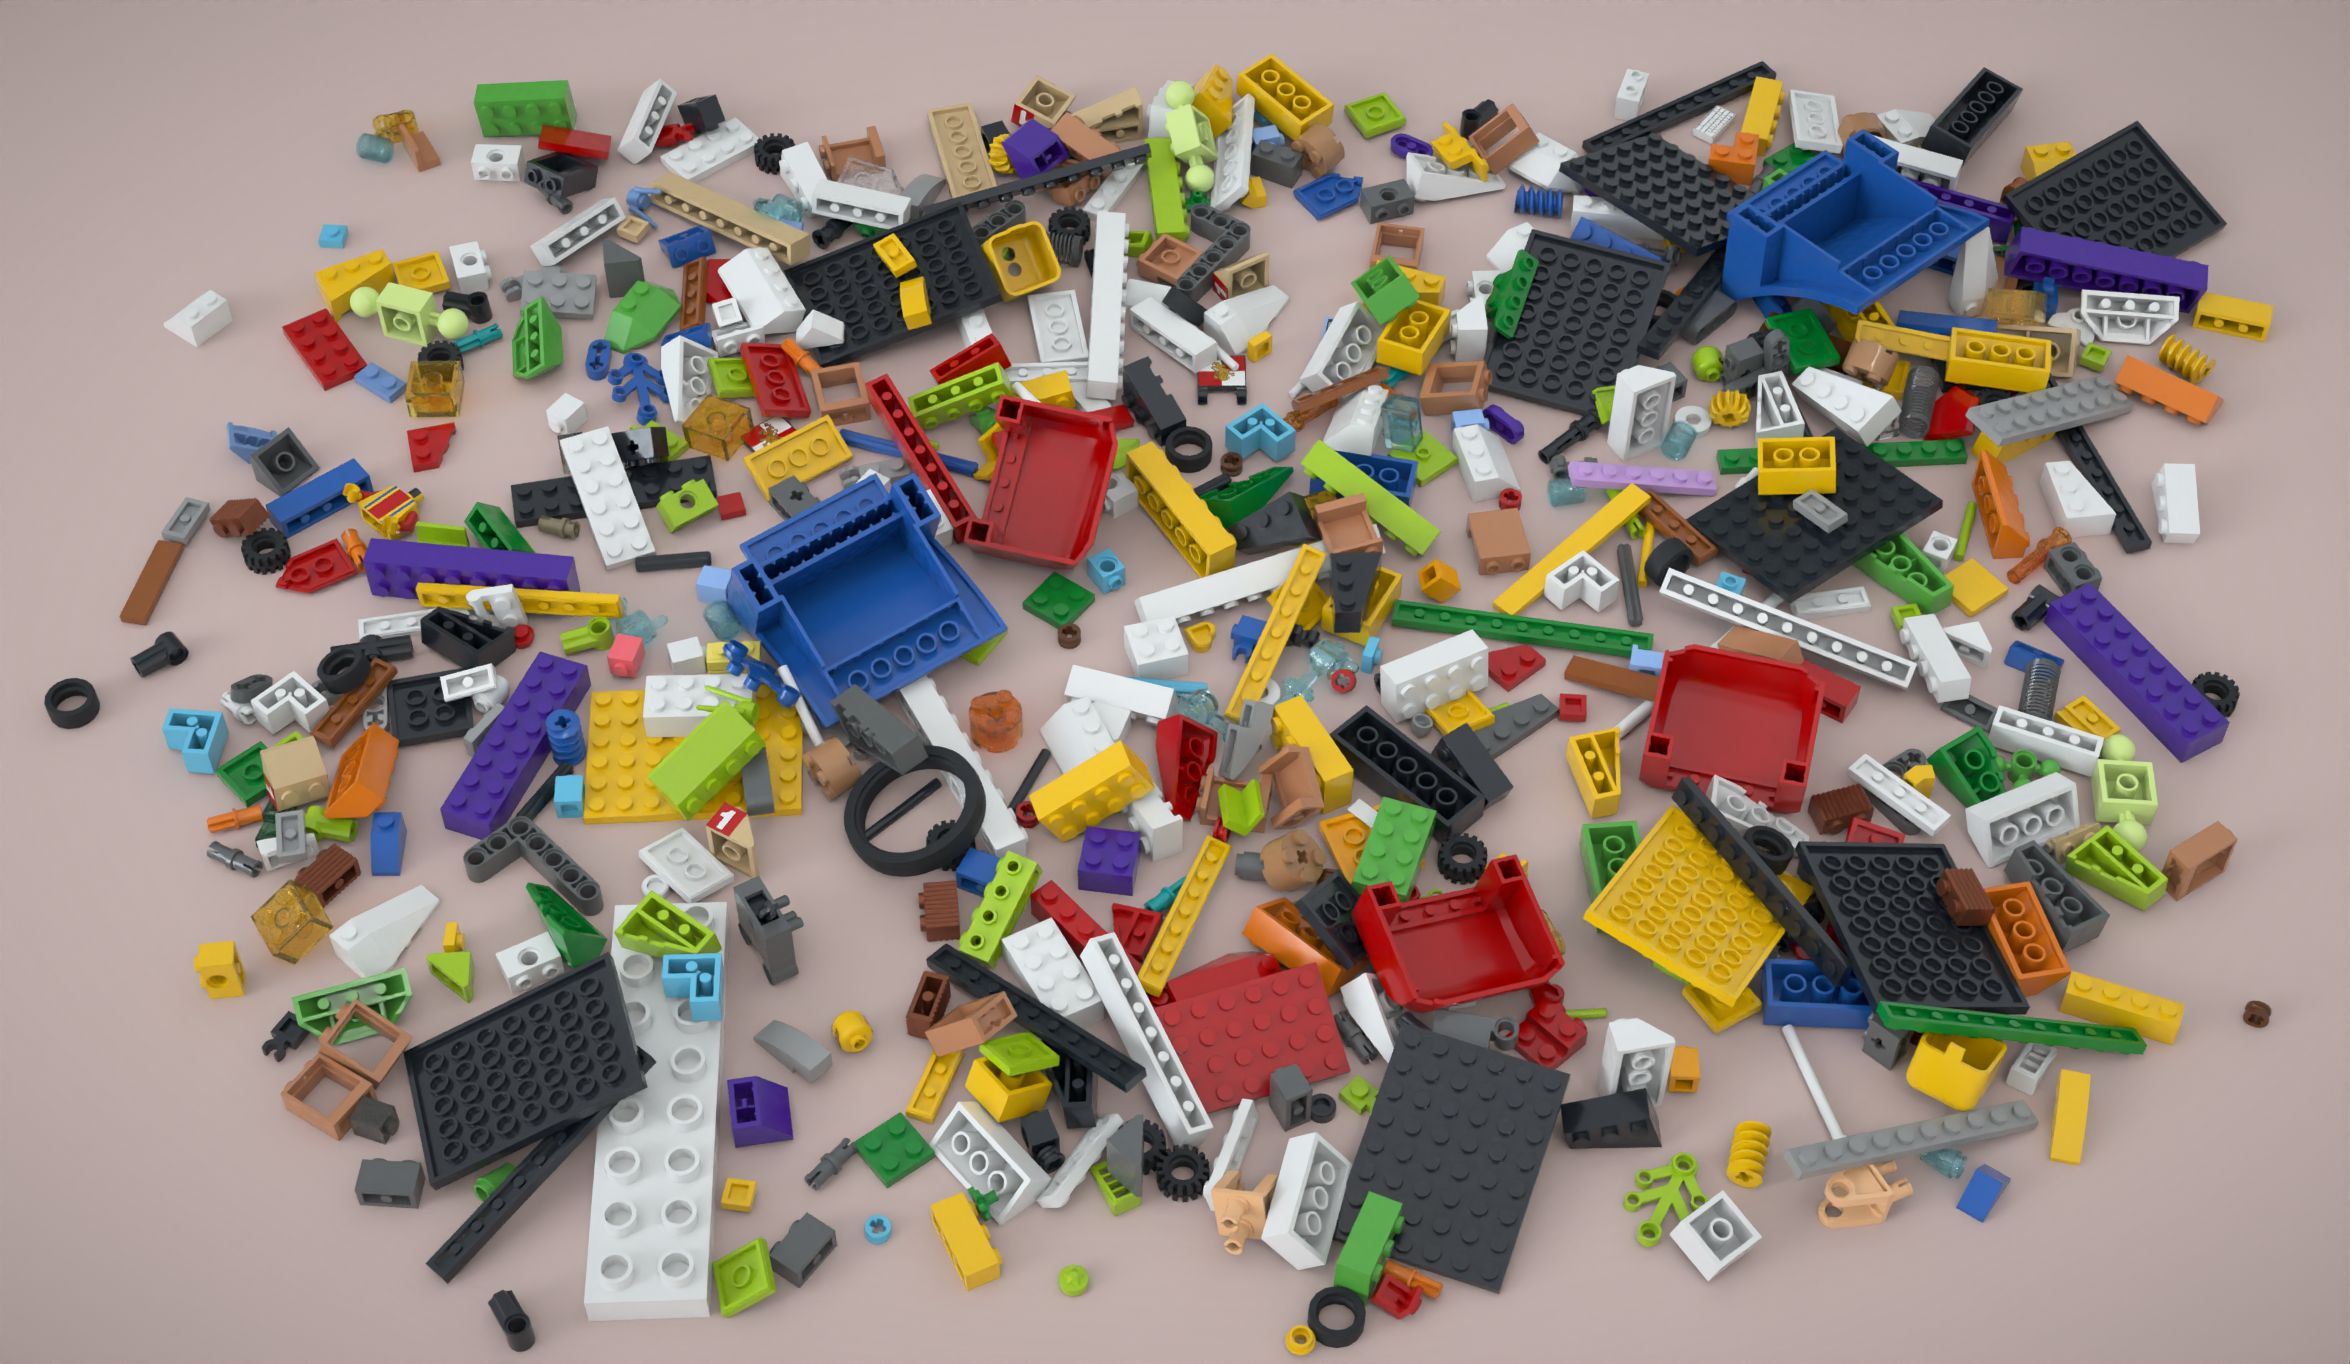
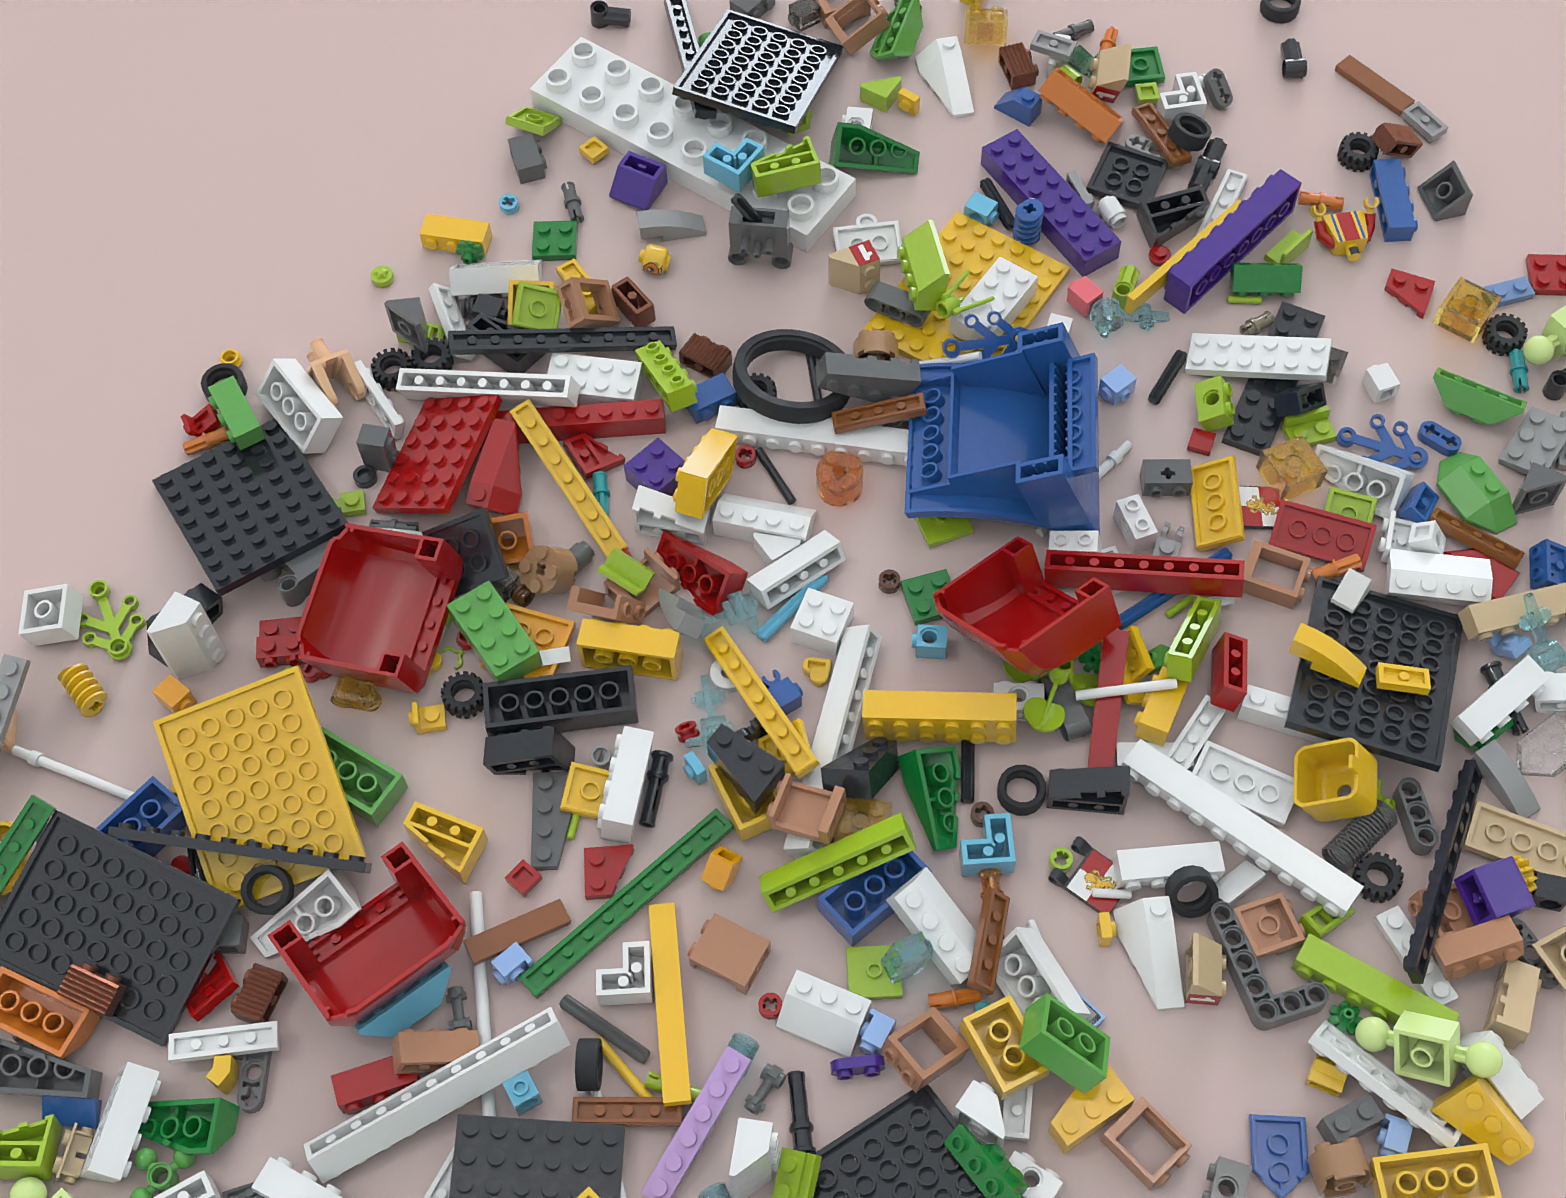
camera: 130 degrees right, 10 degrees up
(198, 735) = (1190, 47): medium azure brick -> none
(247, 440) = (1490, 186): medium blue slope -> none
(317, 568) = (1320, 173): red tile -> none
(469, 682) = (1124, 194): white slope -> none
(503, 602) = (1184, 233): white plate -> none
(526, 839) = (933, 176): dark grey beam -> none
(908, 709) = (878, 413): none -> dark orange tile
(1225, 401) = (1064, 853): none -> lime bush

